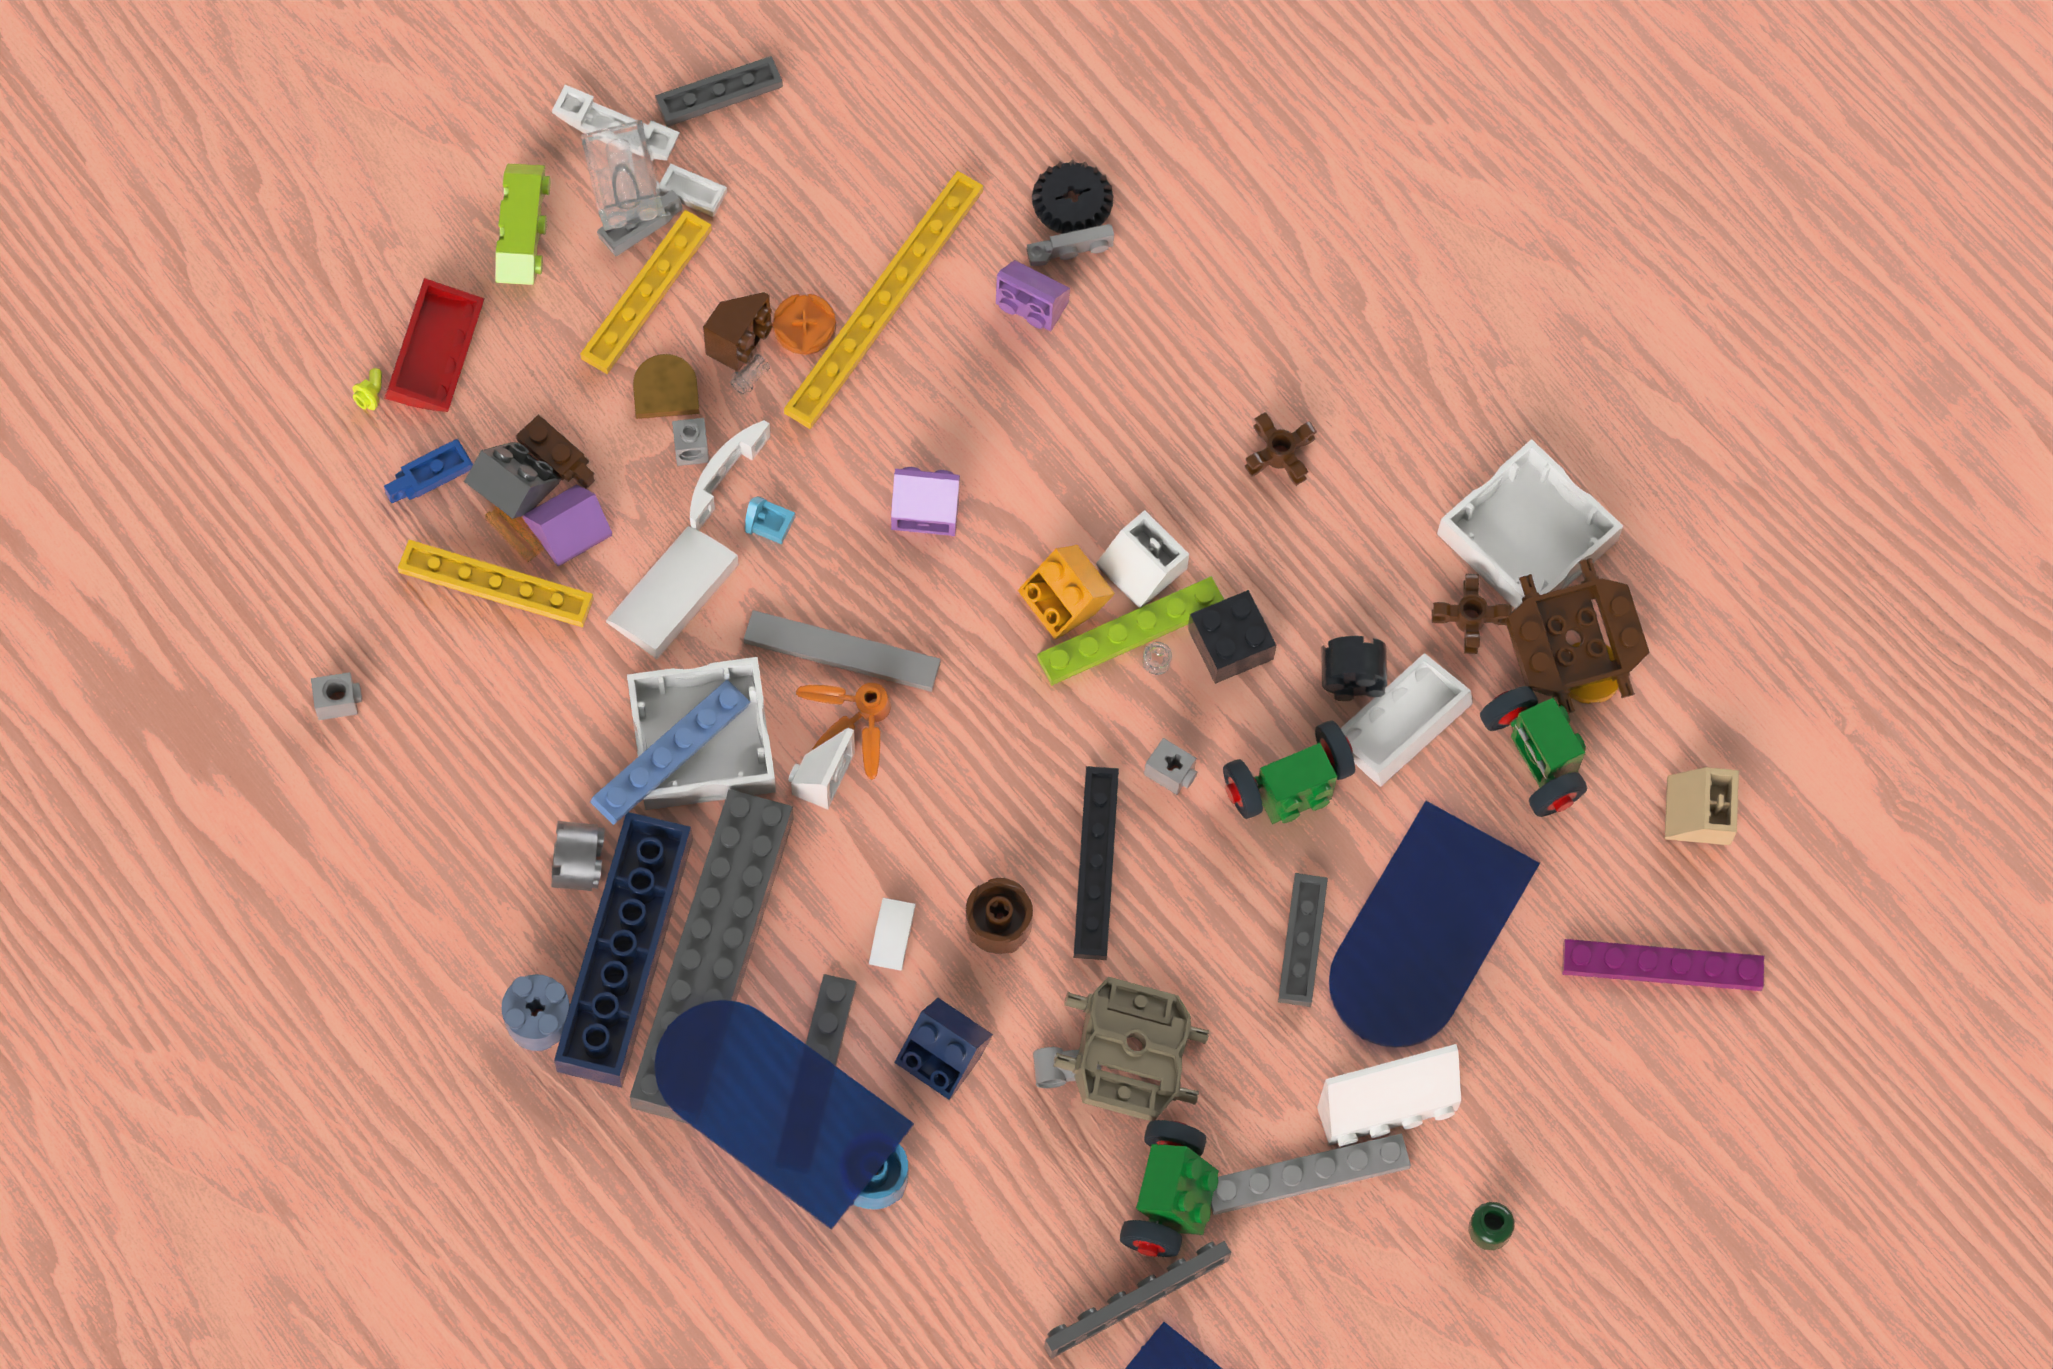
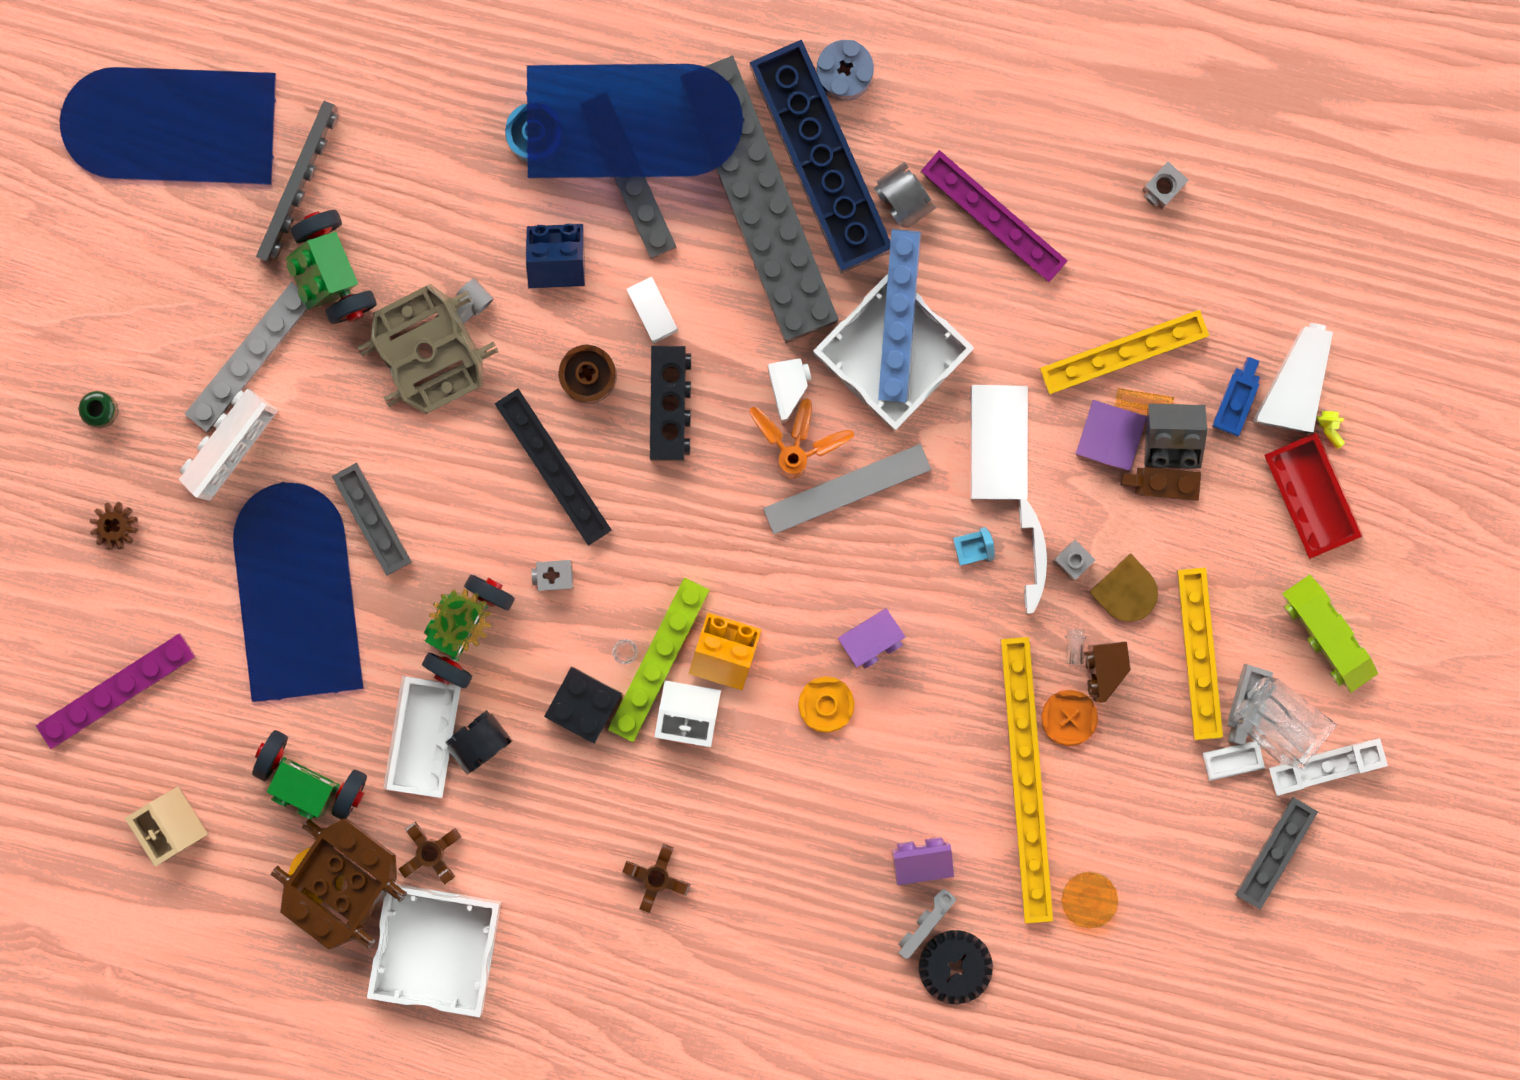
camera: 145 degrees right, 20 degrees up
(365, 445) = (1298, 385): none -> white slope
(511, 785) = (993, 216): none -> magenta plate
(911, 169) = (1089, 899): none -> clear yellow tile
(920, 881) = (661, 359): none -> black brick
(1010, 486) = (826, 704): none -> light orange tile
(1280, 775) = (448, 612): none -> clear yellow gear
(1562, 1102) = (114, 537): none -> reddish brown gear

